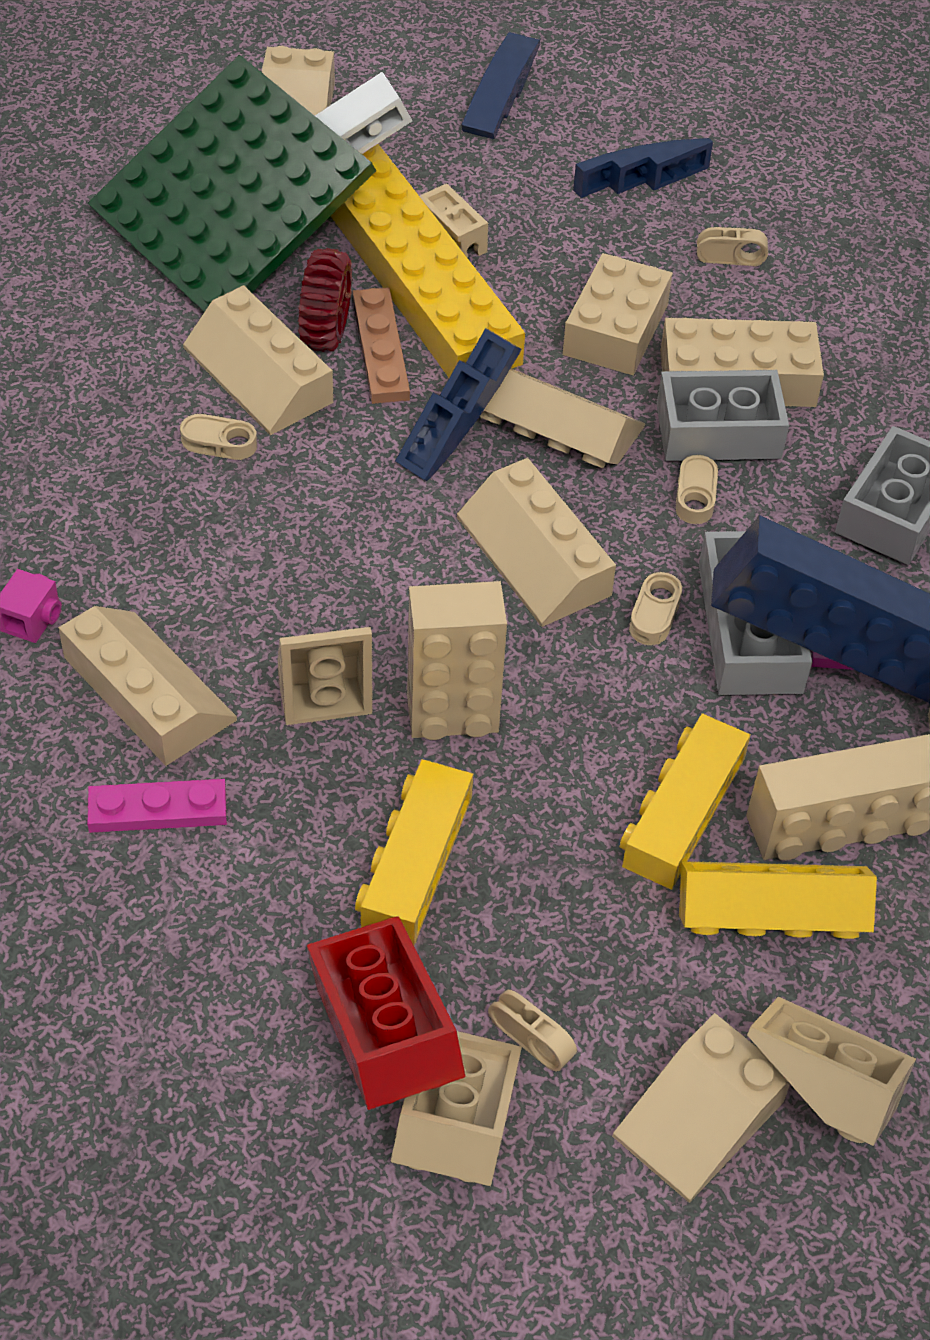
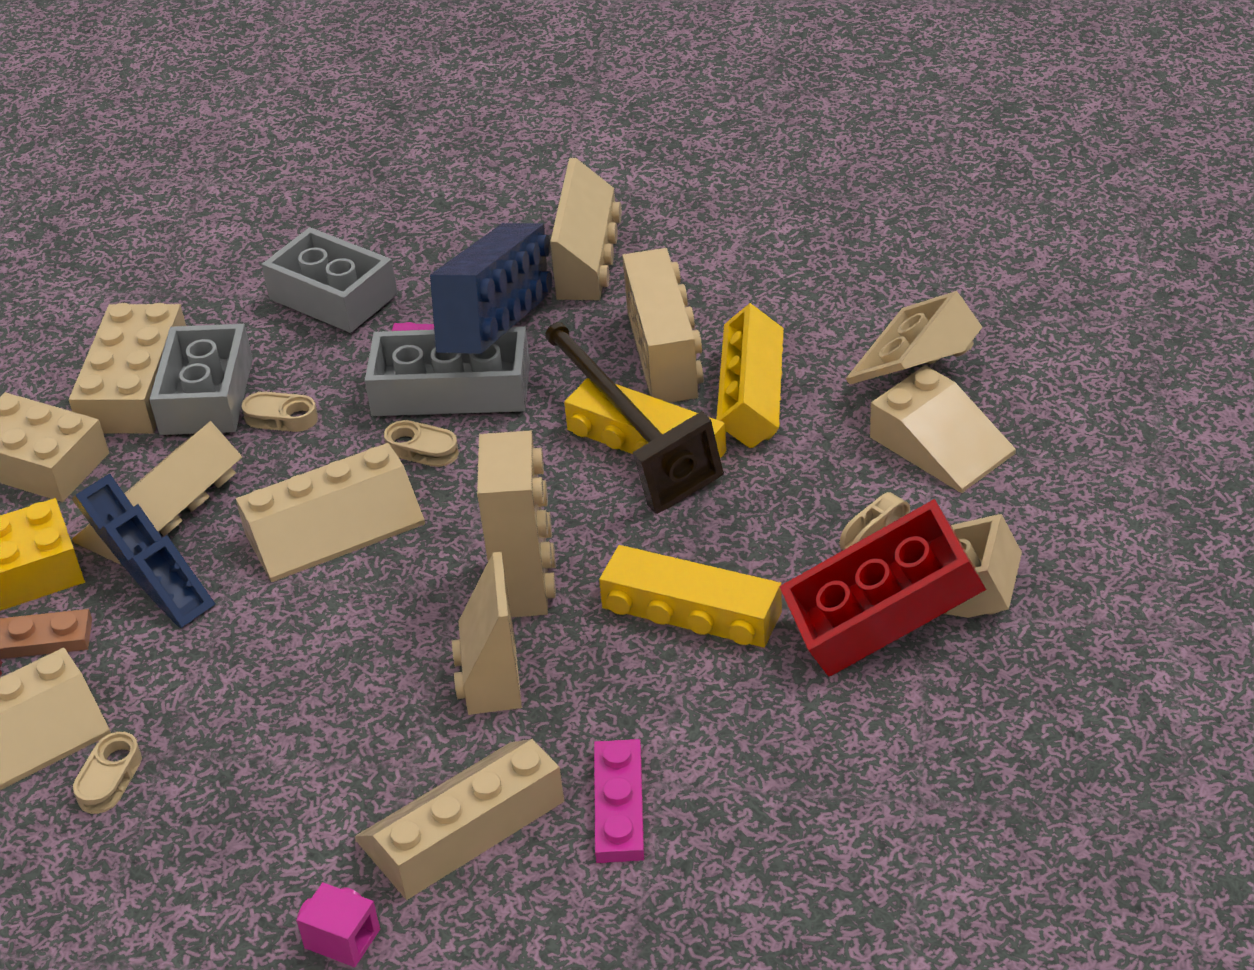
camera: 80 degrees left, 10 degrees down
(604, 822) = (671, 462): none -> dark brown tile

